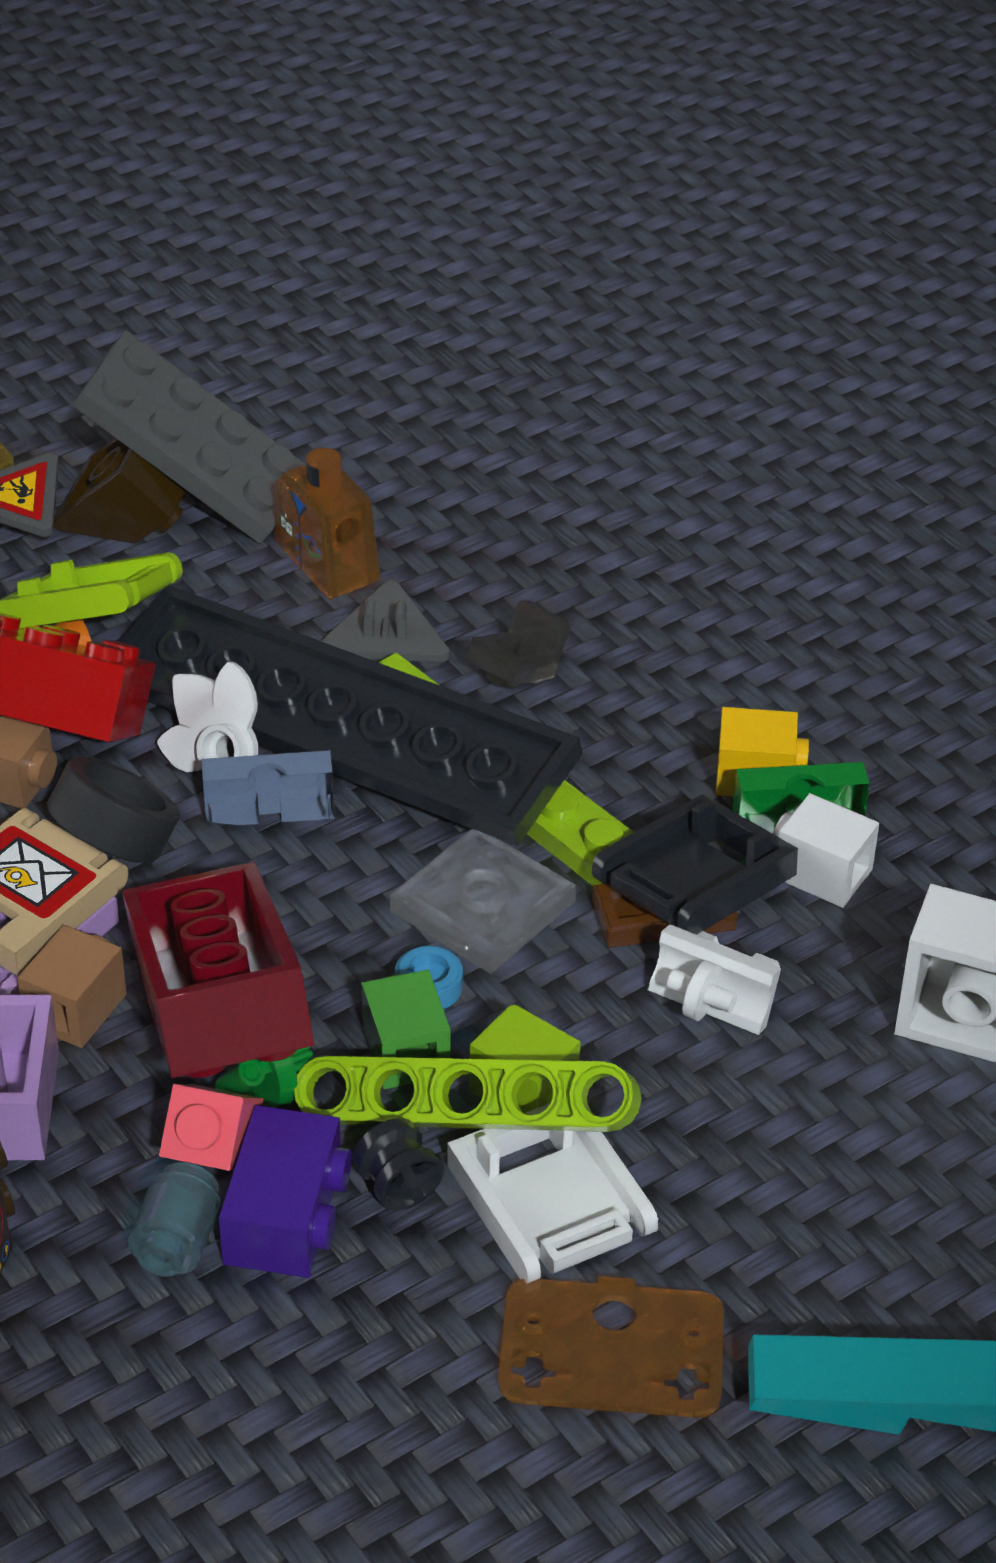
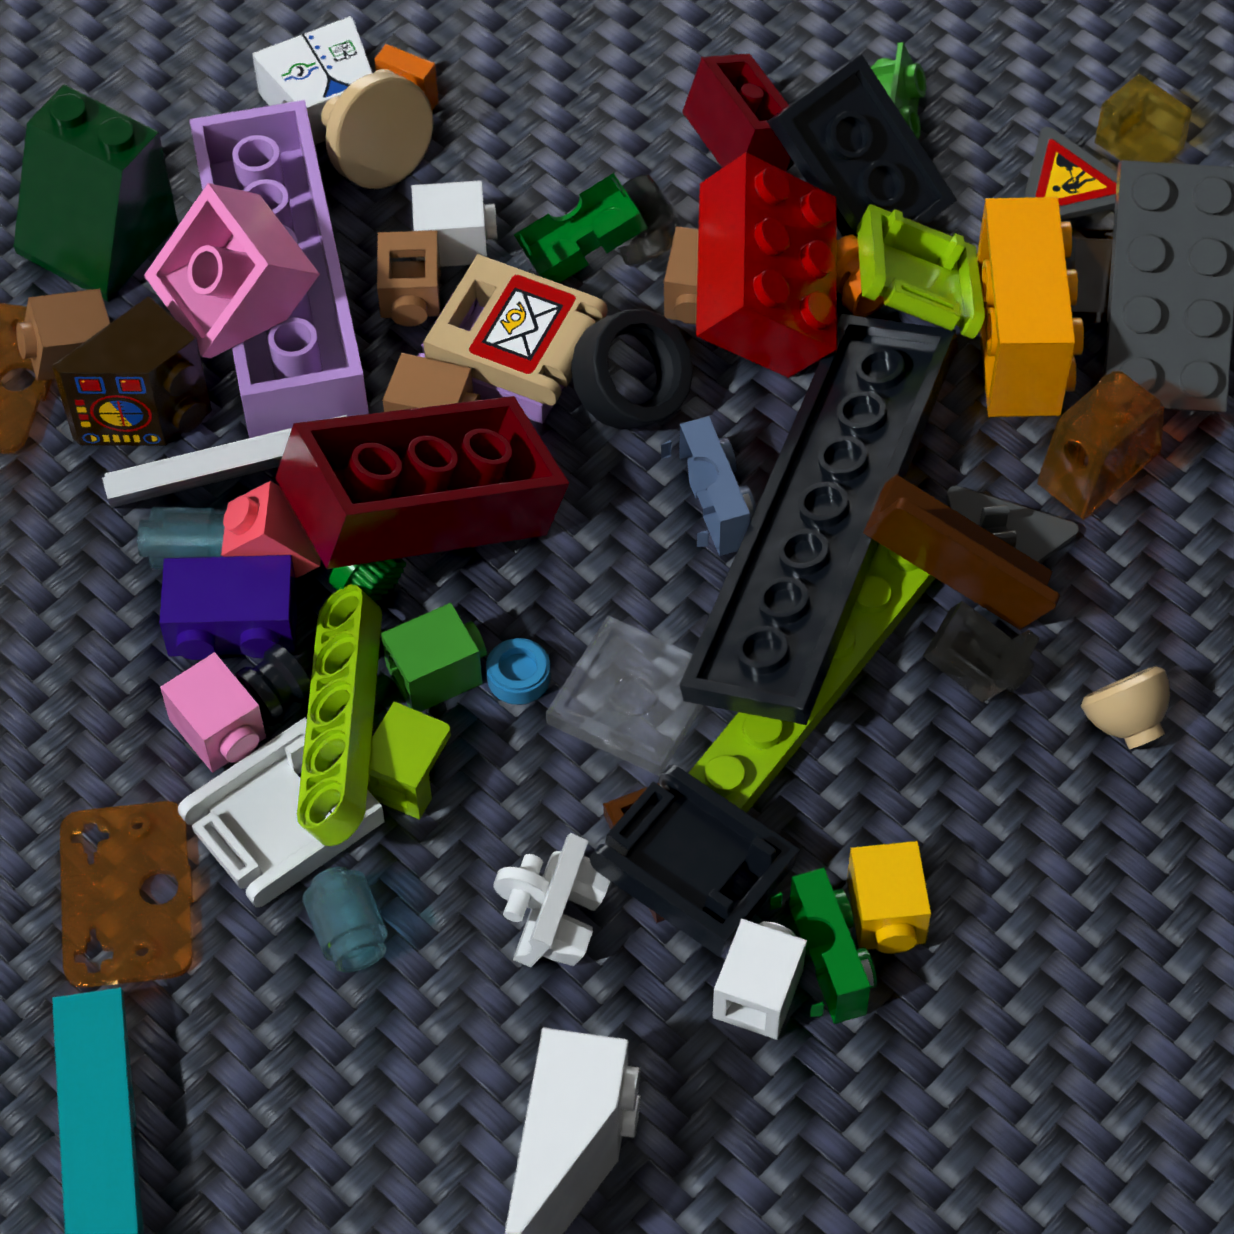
camera: 80 degrees right, 15 degrees up
(104, 1151) = (196, 468): none -> white tile
(146, 510) = (1027, 307): none -> light orange brick
(210, 716) = (775, 416): white plate -> none
(426, 623) = (960, 553): none -> reddish brown panel
(429, 1210) = (214, 713): none -> bright pink brick
(598, 573) = (1131, 706): none -> tan brick
(701, 1140) = (345, 919): none -> clear light blue brick

